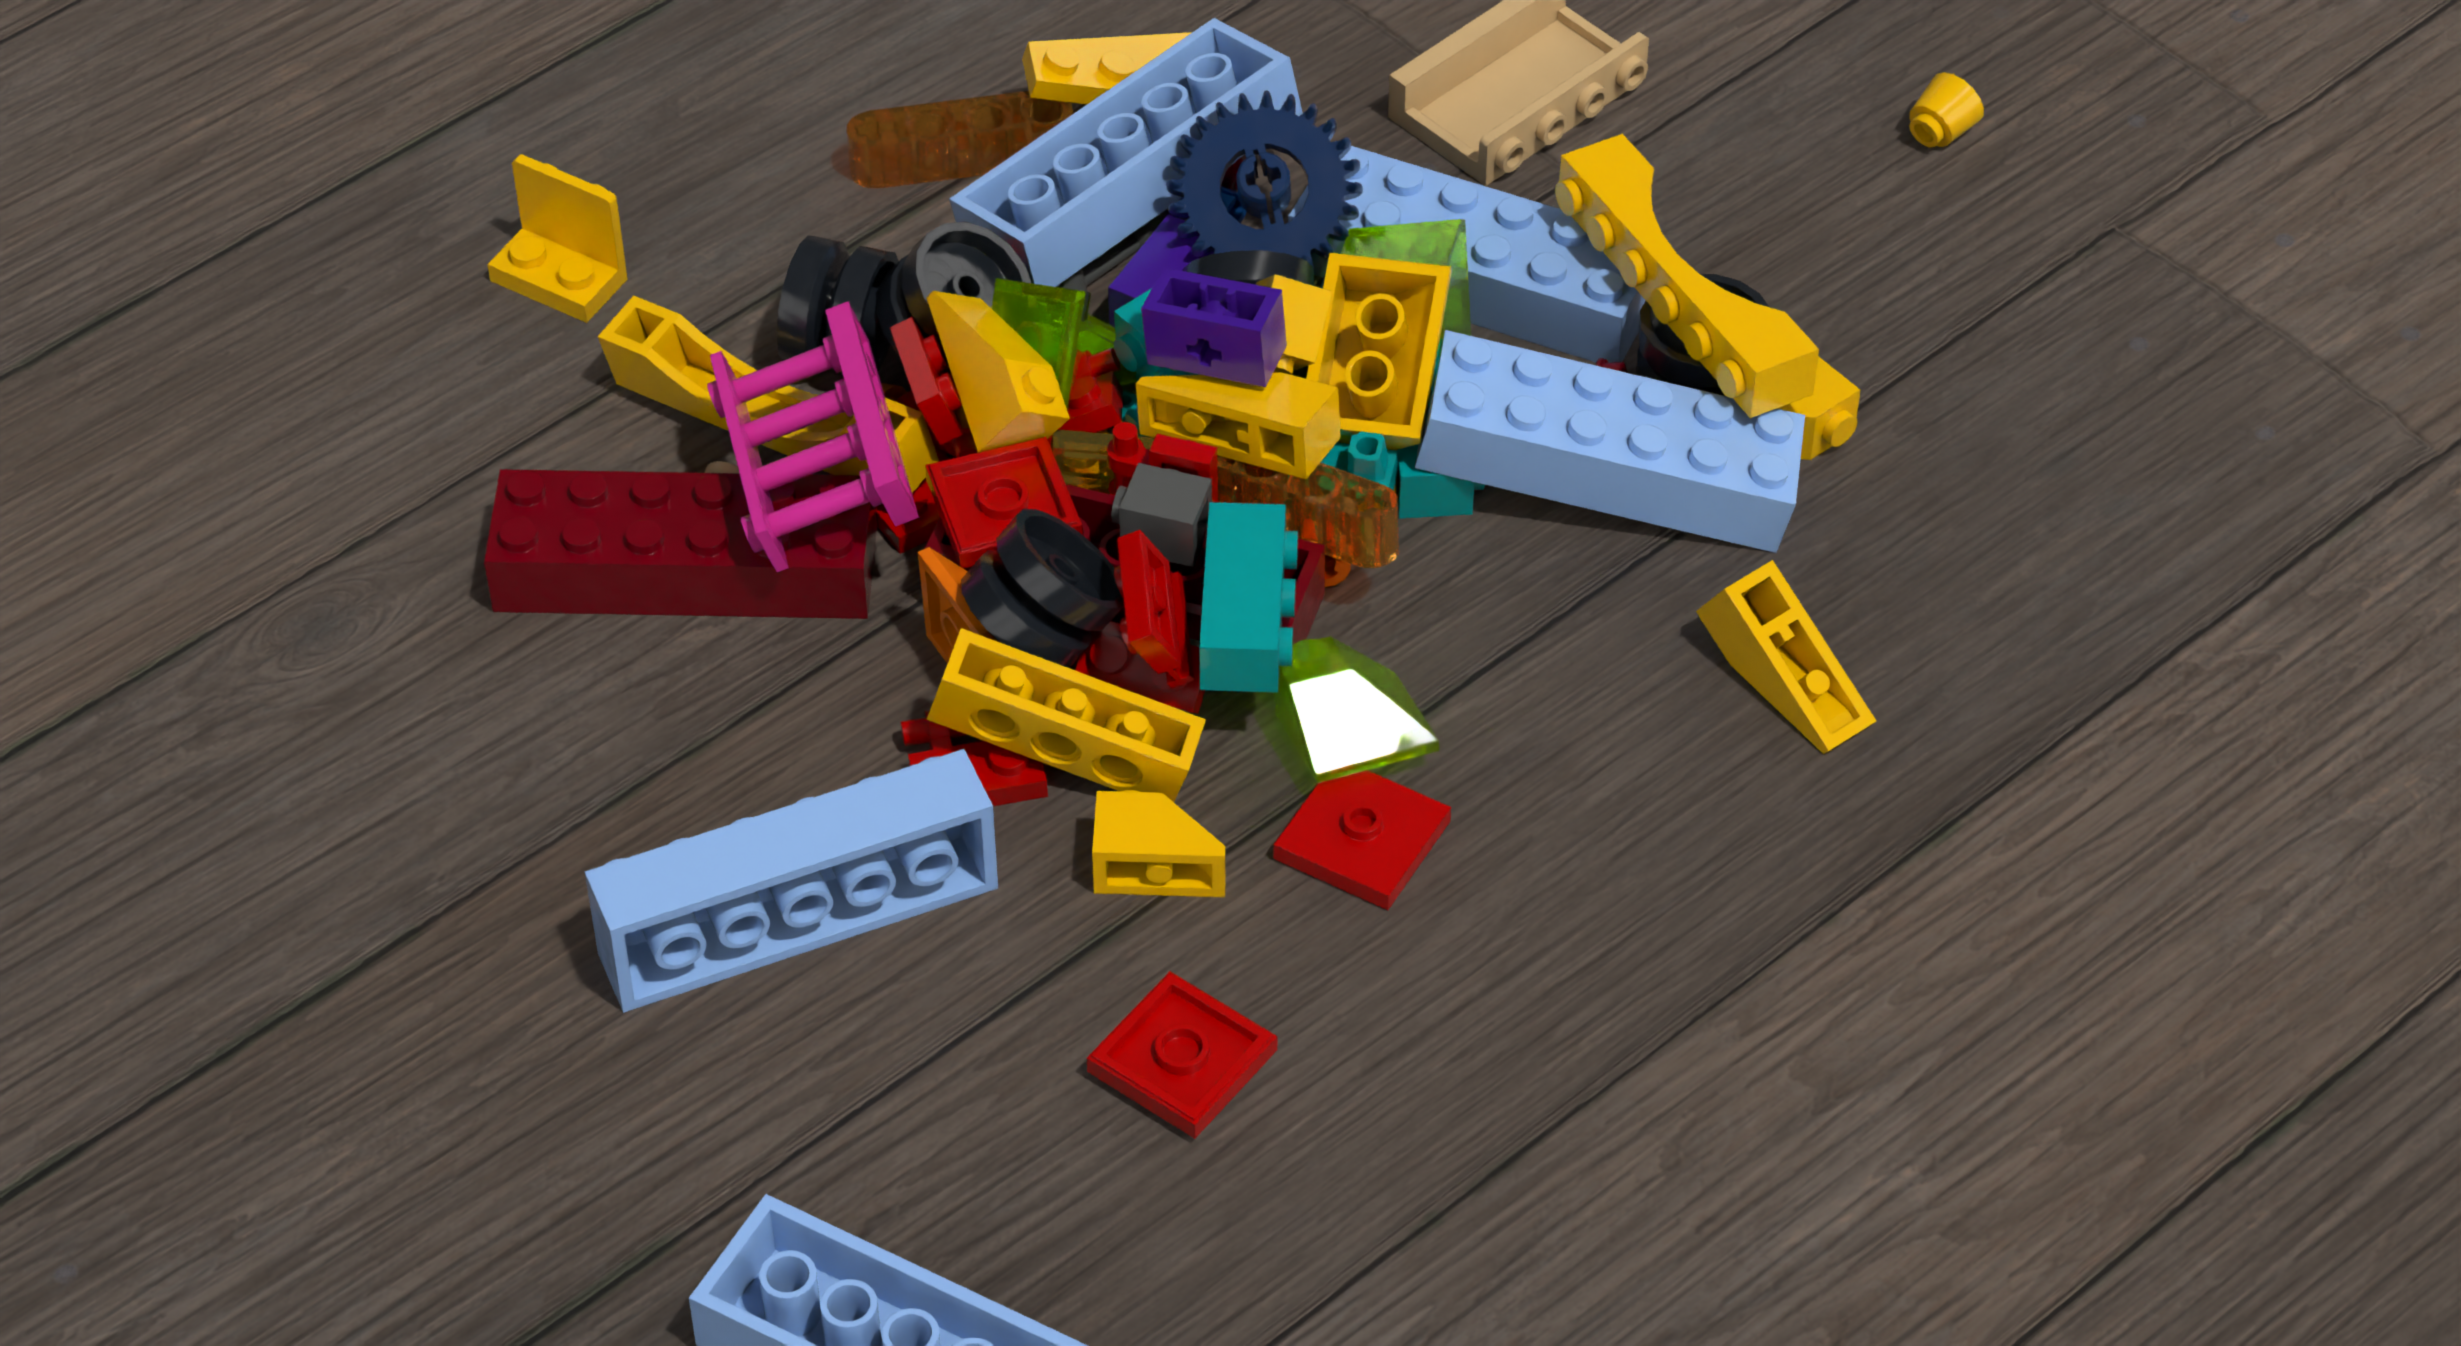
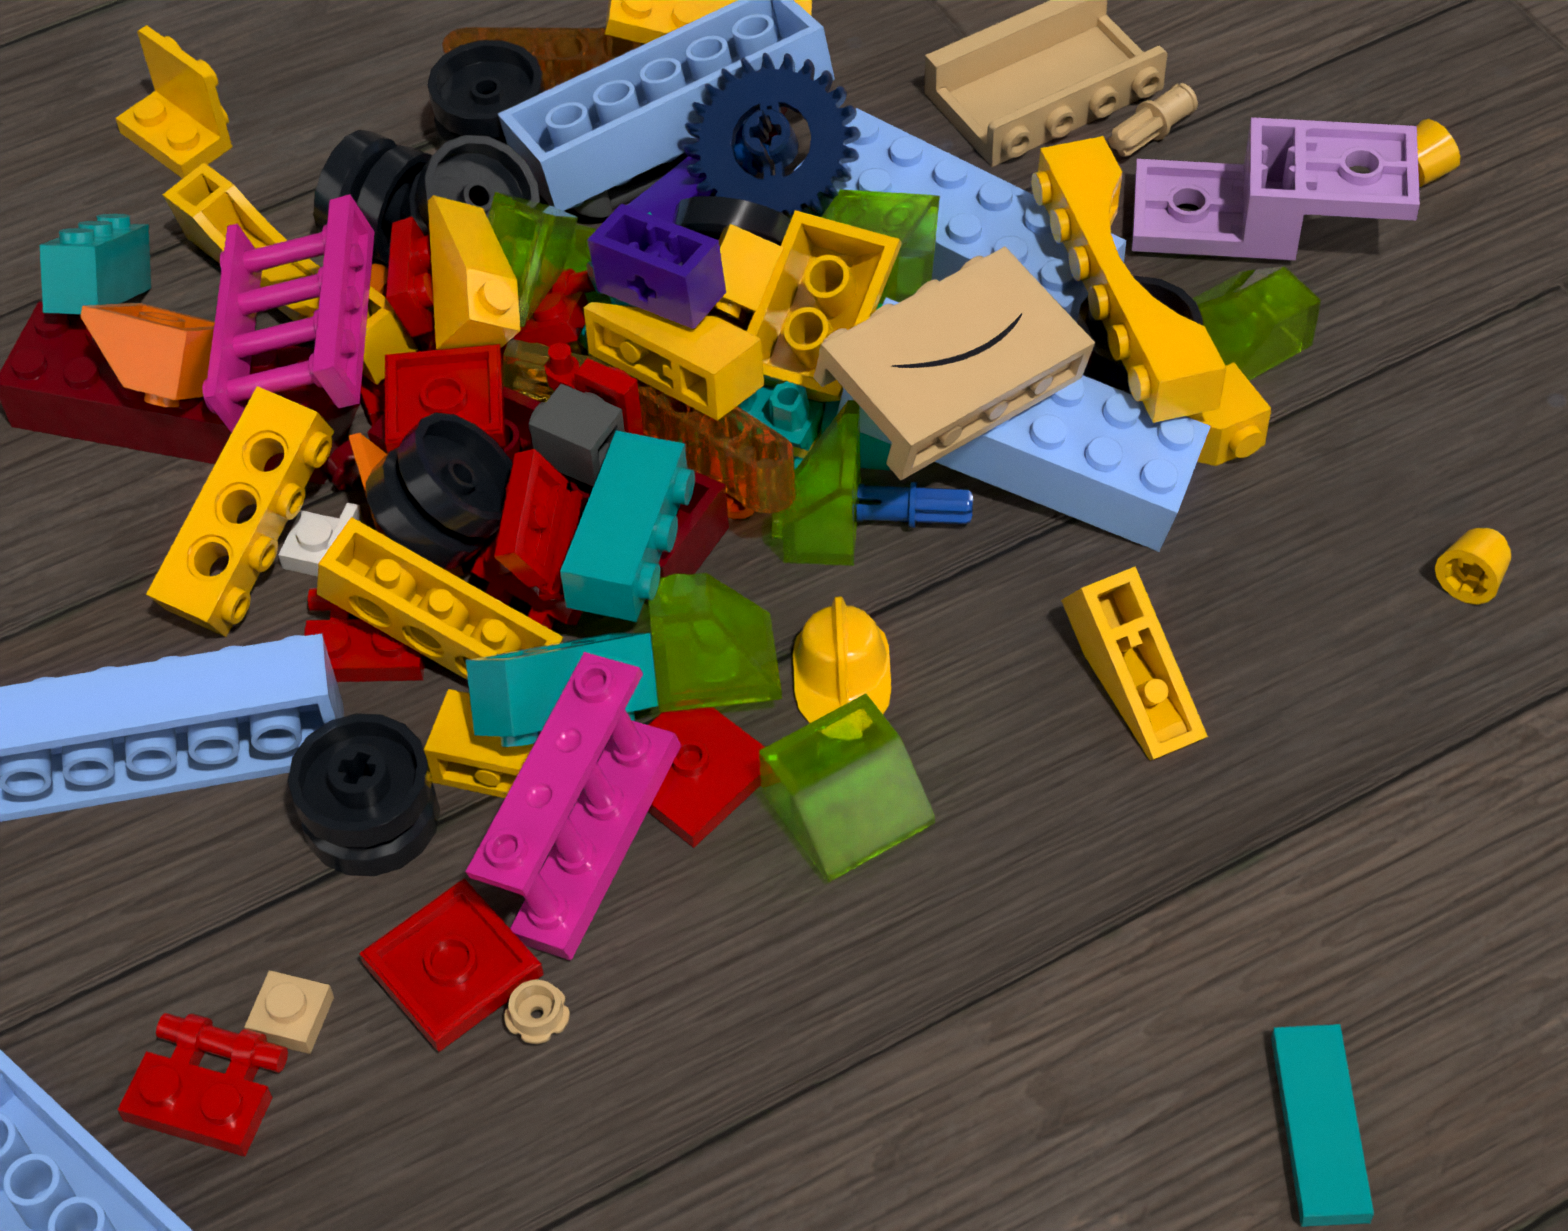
camera: 15 degrees right, 5 degrees up
(556, 421) = (95, 264): none -> teal brick
(677, 496) = (153, 349): none -> orange slope
(827, 556) = (238, 480): none -> yellow brick
(898, 592) = (343, 468): none -> dark red plate
(899, 677) = (312, 537): none -> white bracket
(909, 177) = (477, 84): none -> black wheel
(965, 1225) = (198, 1102): none -> red plate
(1027, 1128) = (290, 1011): none -> tan plate
(1040, 908) = (364, 794): none -> black wheel
(1223, 767) = (520, 688): none -> teal brick
(1279, 873) = (603, 821): none -> dark pink fence
(1286, 1069) = (536, 996): none -> tan plate
(1433, 545) = (823, 517): none -> clear neon green slope
(1487, 714) = (840, 659): none -> yellow piece
(1514, 542) = (915, 504): none -> blue axle
(1533, 821) = (845, 787): none -> clear neon green slope
(1544, 377) = (956, 358): none -> tan panel
(1651, 110) = (1153, 119): none -> tan axle
(1805, 159) = (1285, 174): none -> lavender bracket
(1826, 295) = (1259, 318): none -> clear neon green slope
(2082, 1052) = (1321, 1126): none -> teal tile
(2099, 516) = (1474, 566): none -> yellow hat

